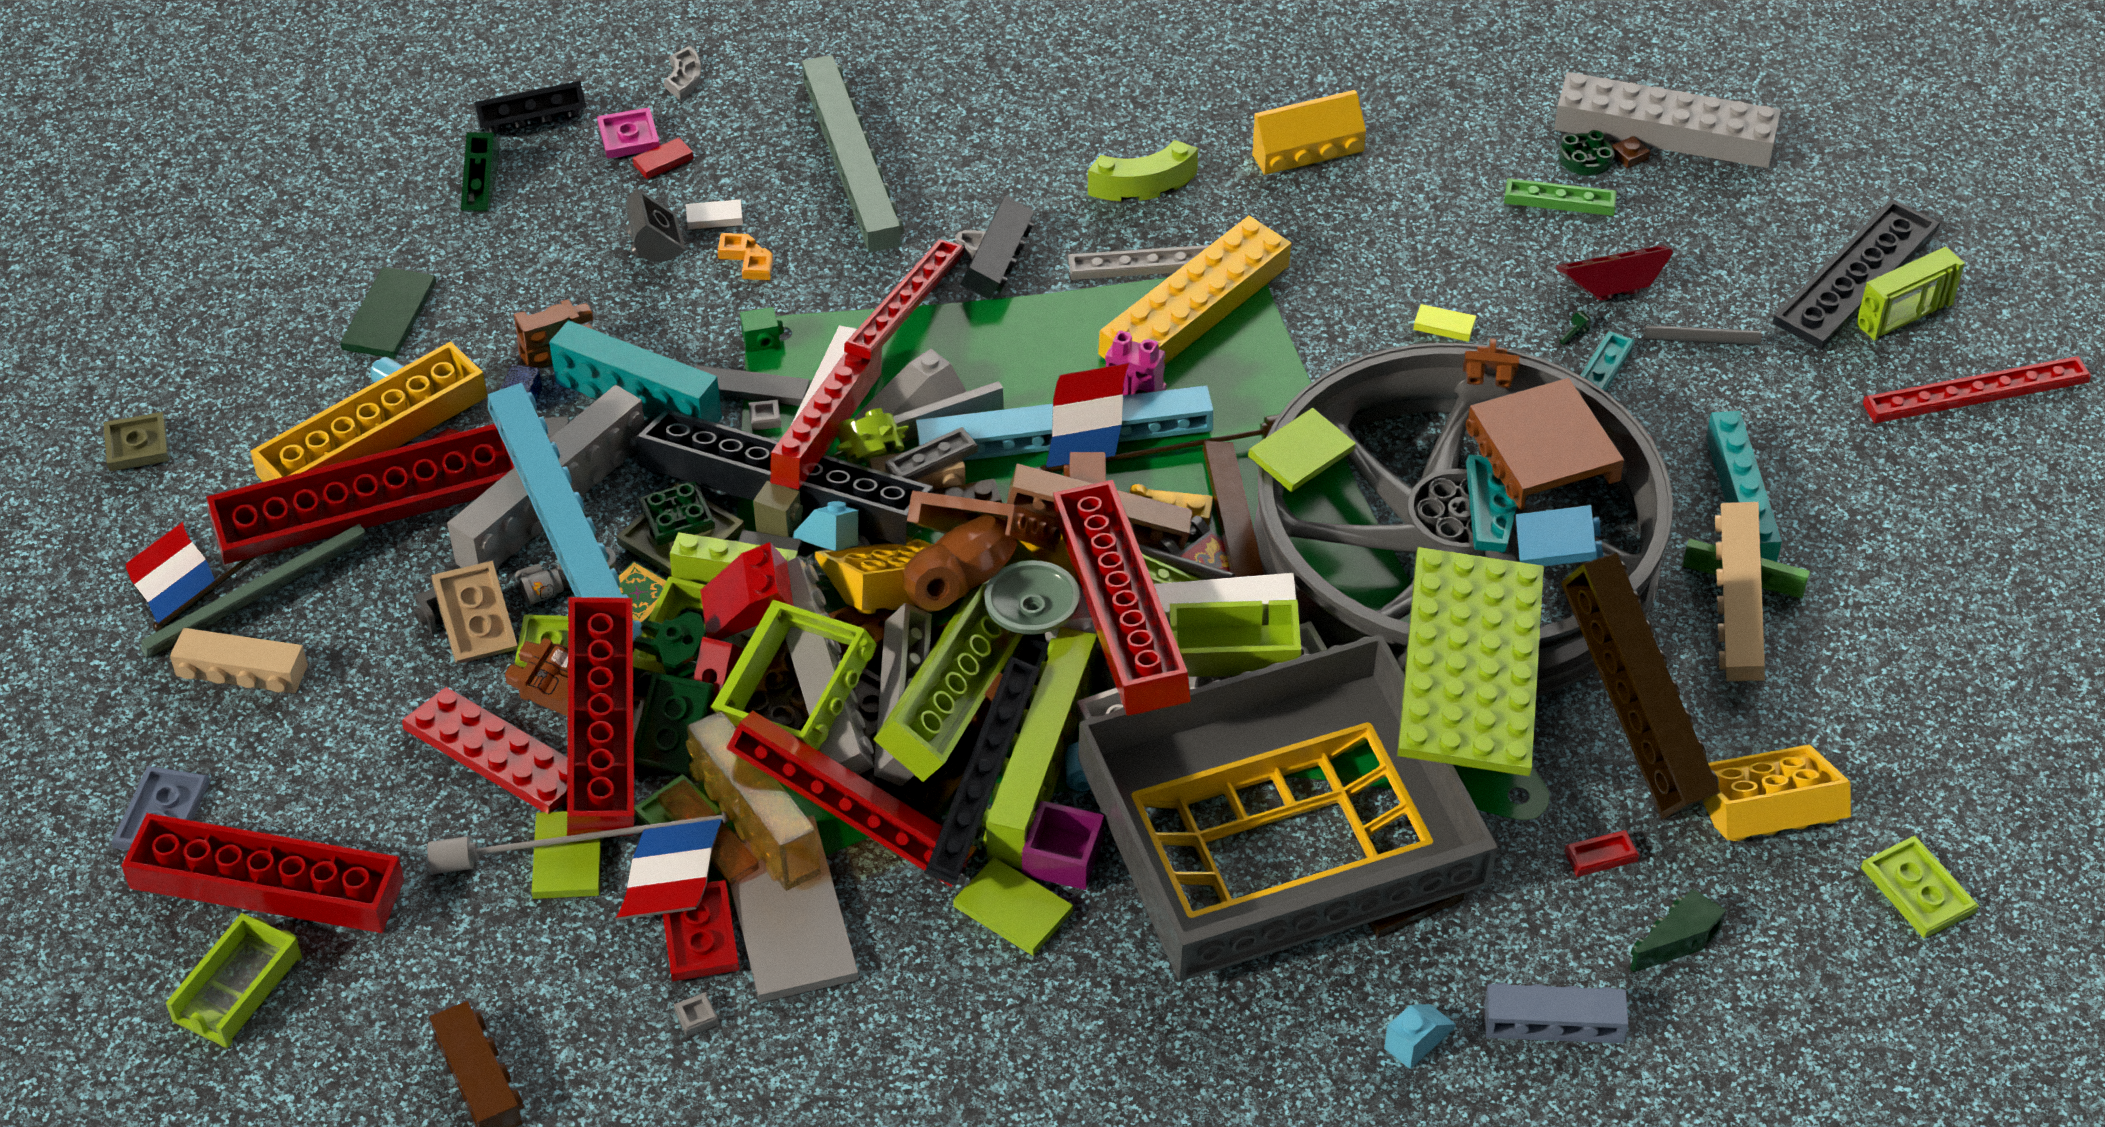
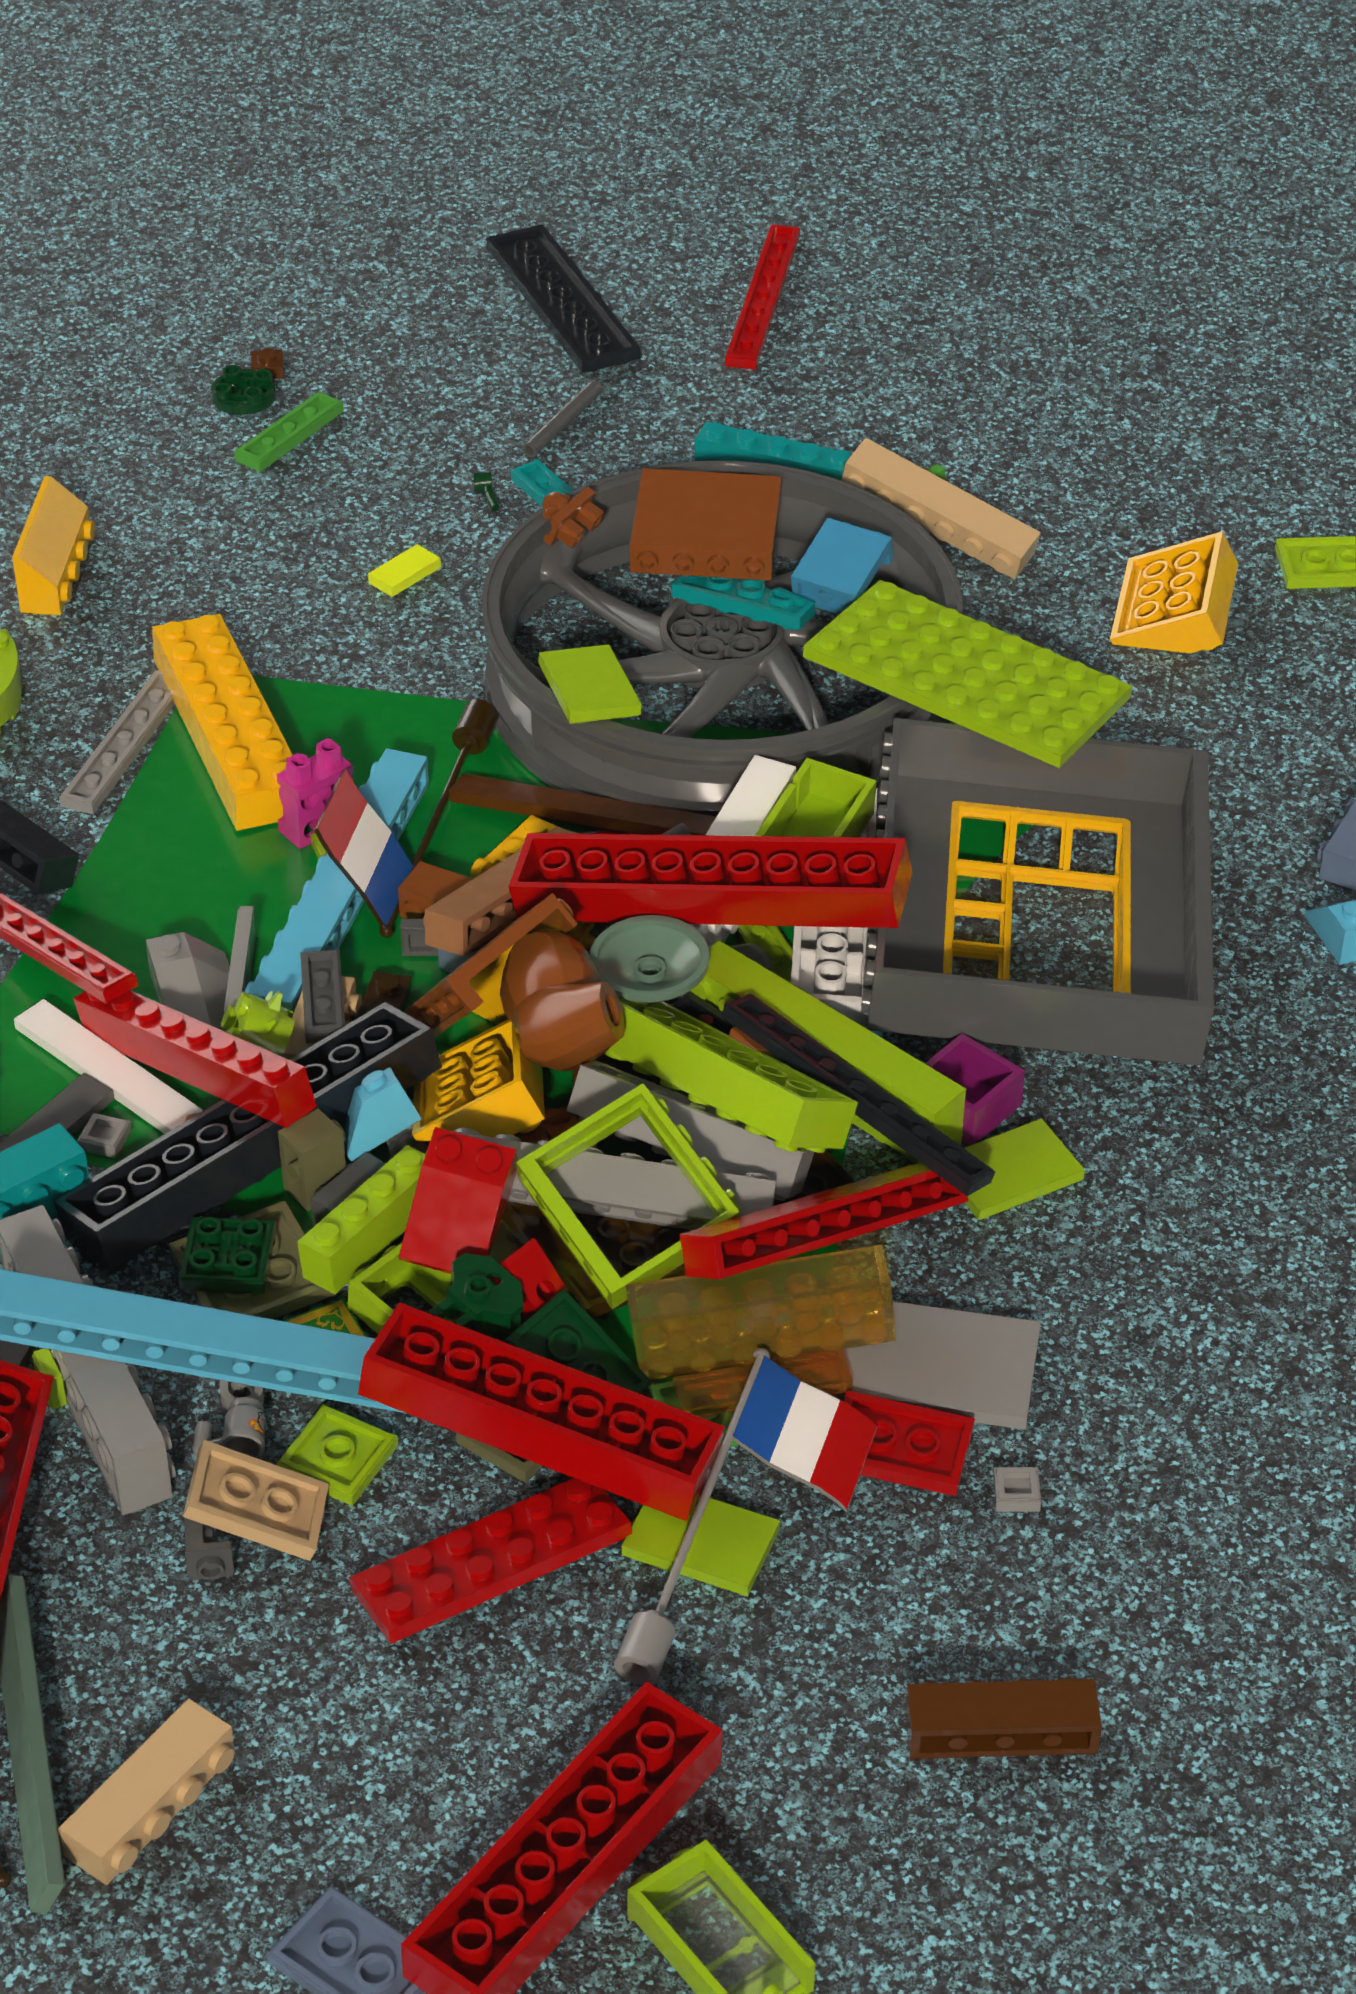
camera: 65 degrees left, 5 degrees down
(544, 676) = (412, 1462): dark orange hips -> none
(1601, 853) = (1183, 726): red tile -> none
(1617, 272) = (441, 427): dark red wedge -> none
(1640, 686) = (1054, 590): dark brown brick -> none
(1668, 119) = (249, 319): light grey brick -> none
(1684, 931) = (1310, 710): dark green slope -> none
(1910, 292) = (630, 272): lime door -> none

